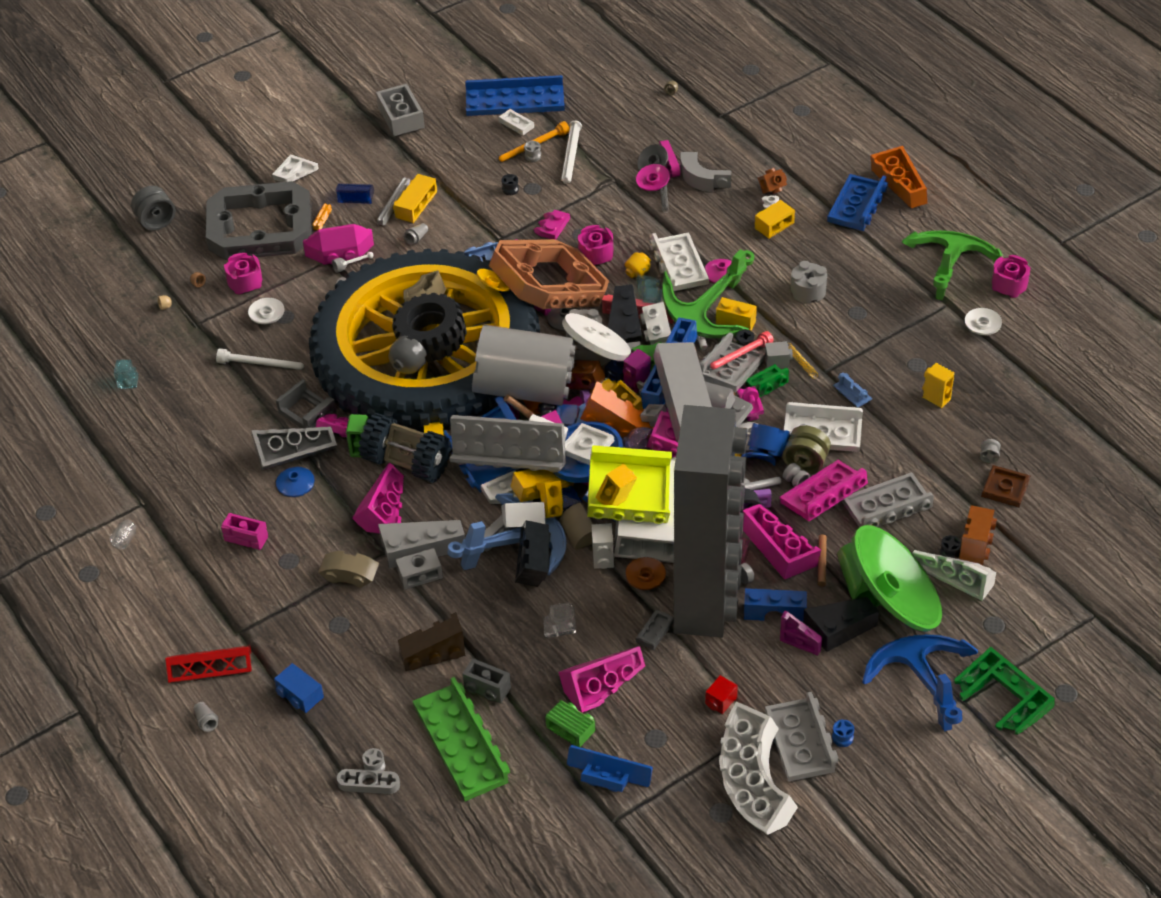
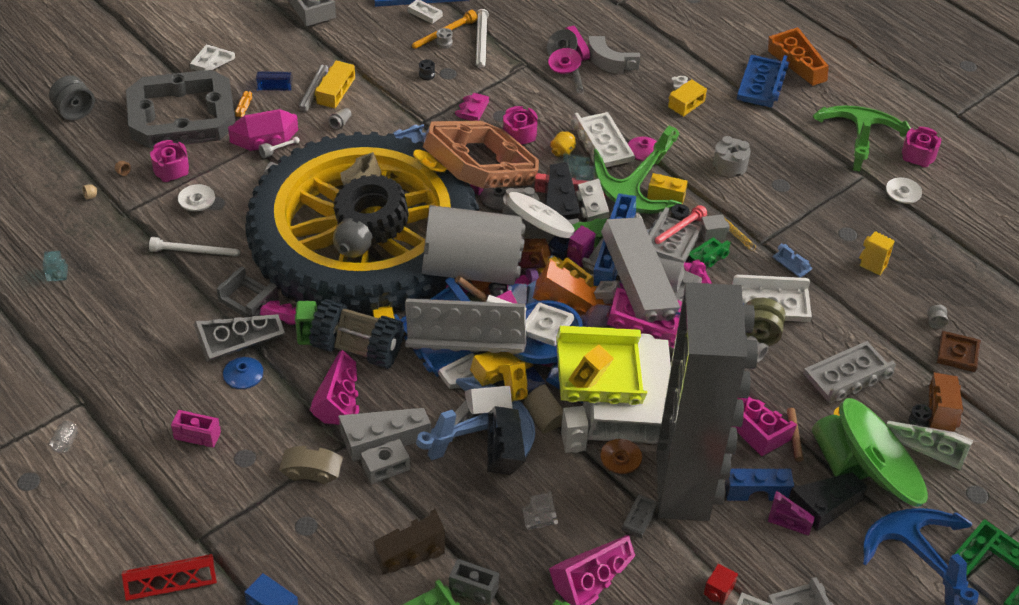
camera: 10 degrees left, 0 degrees up
(772, 181) = (679, 62): dark orange brick -> none
(824, 490) = (787, 361): dark pink bracket -> none

